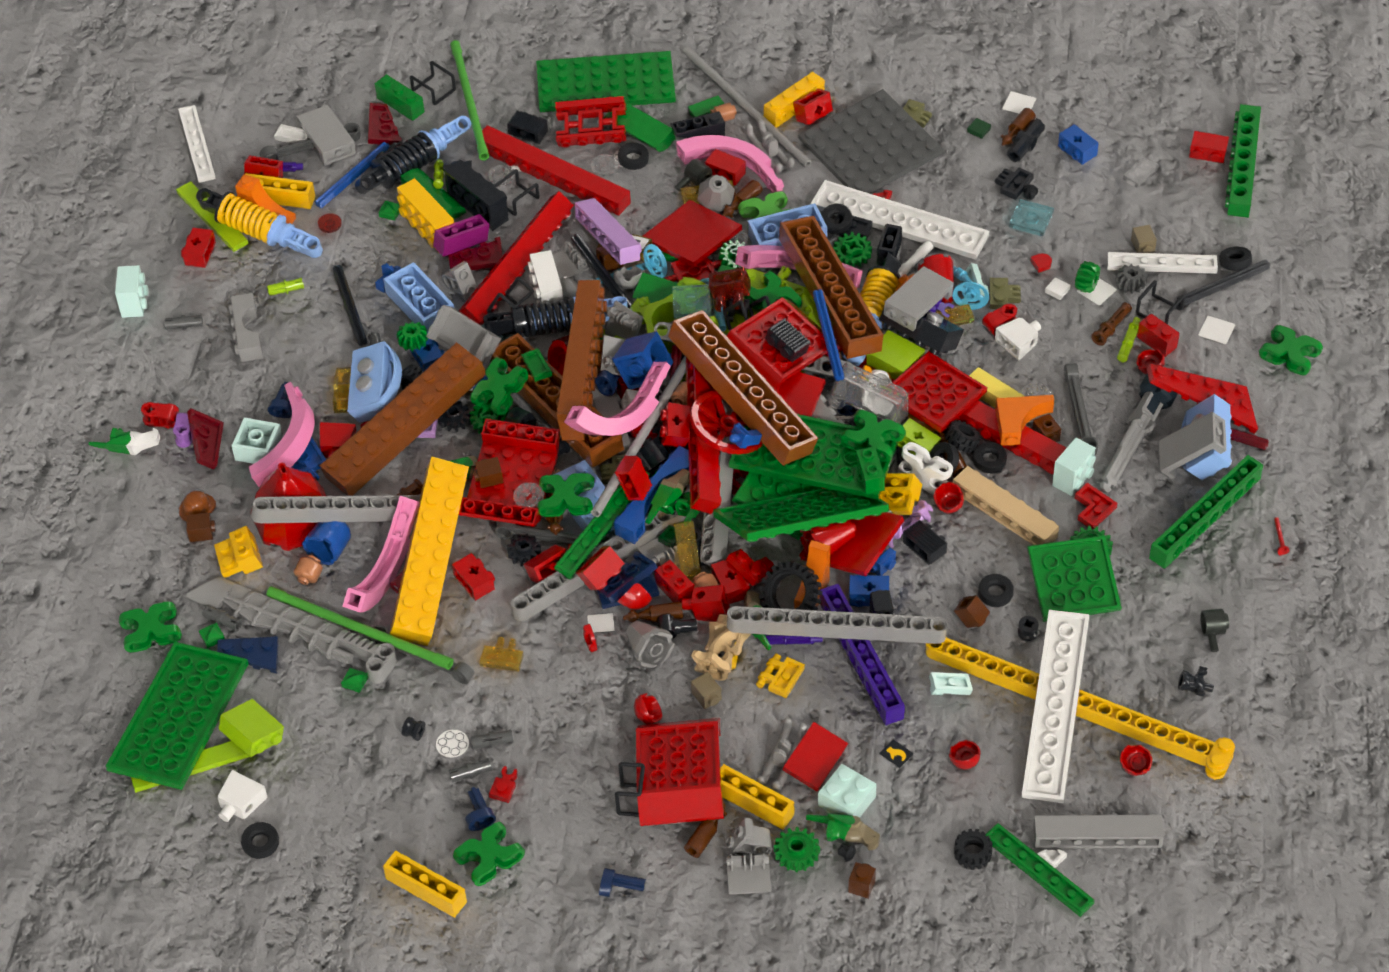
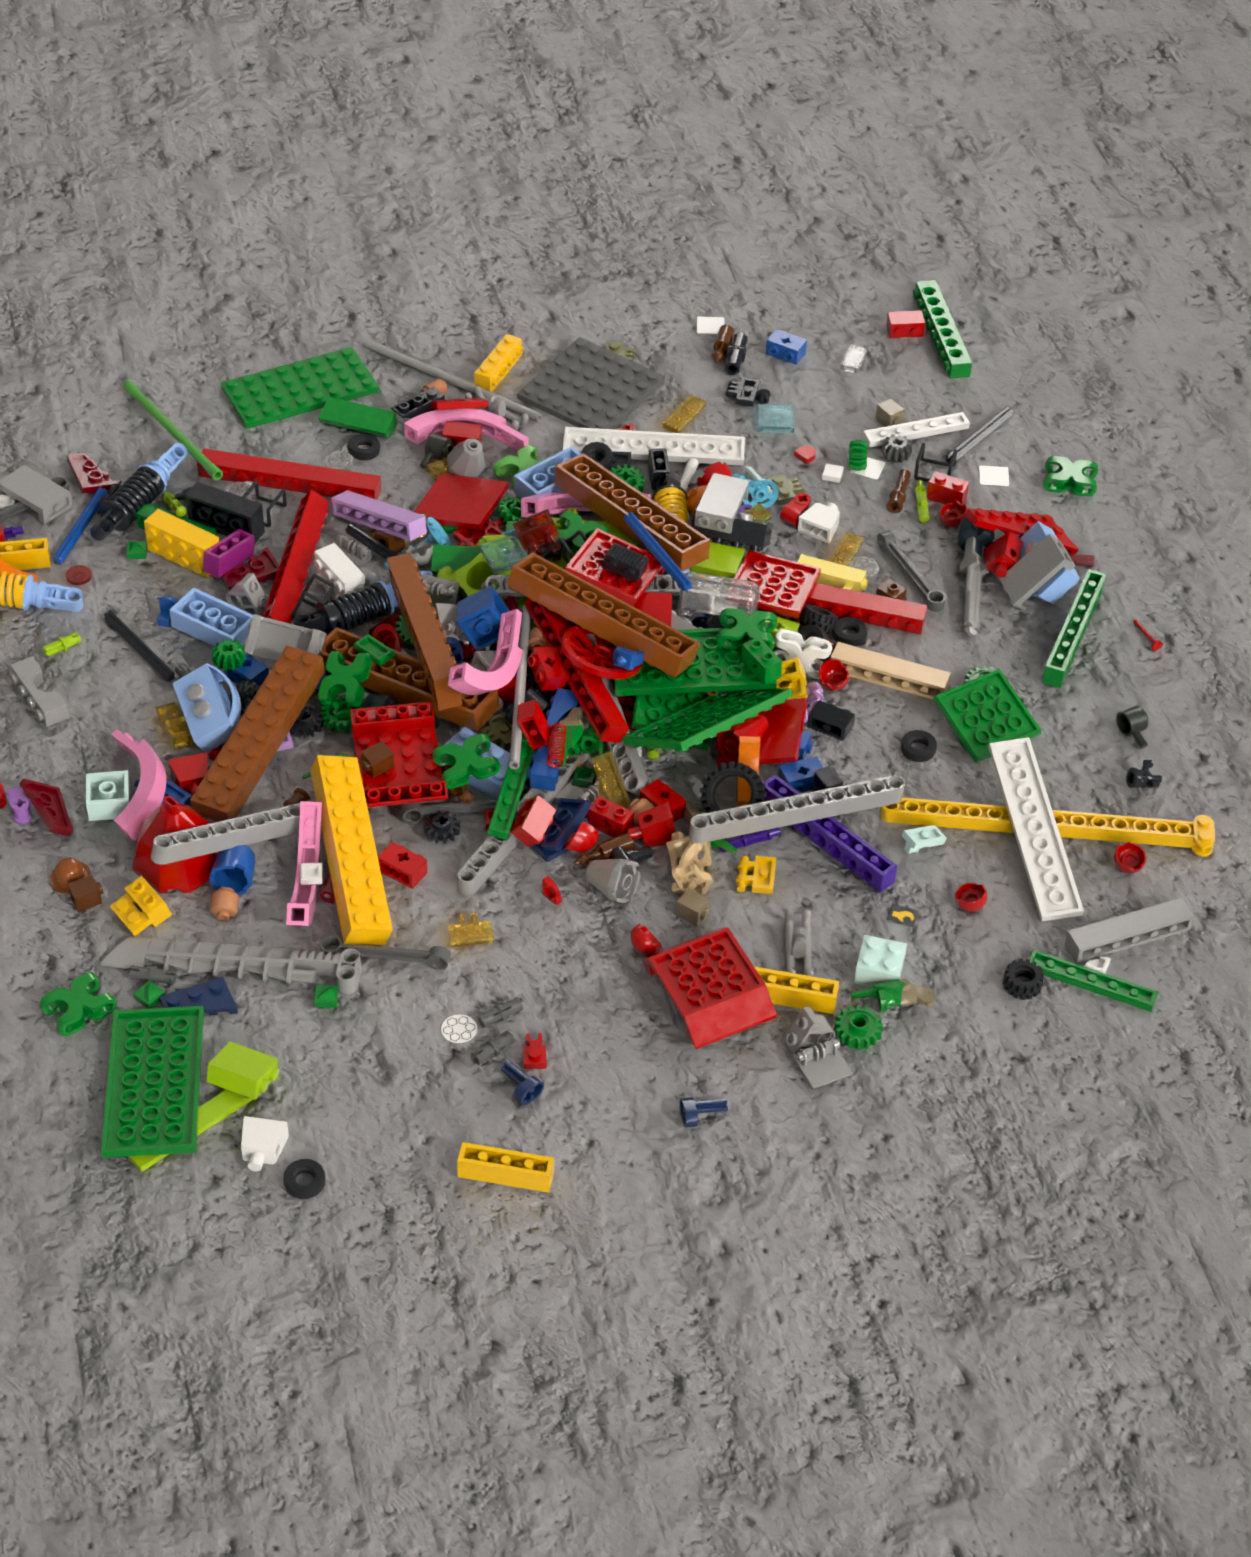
camera: 25 degrees left, 5 degrees down
(280, 406) = (112, 755): dark blue piece -> none
(388, 563) = (311, 873): none -> white tile
(399, 97) = (96, 443): green brick -> none
(413, 728) = (414, 1024): black wheel -> none
(422, 83) = (114, 423): black piece -> none
(436, 658) = (408, 949): bright green piece -> none
(488, 854) = (554, 1120): green piece -> none
(524, 490) = (420, 767): clear gear -> none
(527, 126) = (243, 442): black brick -> none
(544, 563) = (472, 833): red brick -> none
(591, 109) = (304, 411): red fence -> none
(601, 622) = (555, 872): white sticker -> none
(636, 794) = (678, 1018): black piece -> none
(638, 514) = (551, 756): none -> red piece
(702, 836) = (759, 1044): reddish brown wheel -> none
(705, 106) = (412, 388): green tile -> none
(735, 134) = (459, 403): none -> red tile
(750, 191) = (496, 453): reddish brown wheel -> none
(750, 570) = (686, 785): red plate -> none
(813, 106) = (520, 365): red brick -> none
(815, 756) = (830, 938): red tile -> none
(847, 851) = (906, 1016): black piece -> none
(862, 880) = (936, 1036): reddish brown brick -> none
(944, 192) = (684, 414): none -> clear yellow plate
(972, 611) = (910, 768): reddish brown brick -> none
(979, 128) = (685, 353): dark green tile -> none
(1016, 412) = (859, 585): orange arch -> none
(1024, 632) = (967, 770): black wheel -> none
(1027, 373) = (847, 549): none -> clear yellow plate
(1074, 466) = (937, 618): light aqua brick -> none
(1097, 503) = (972, 647): red plate -> none
(1171, 417) = (1003, 554): none -> red torso
(1228, 263) = (980, 411): black tyre -> none

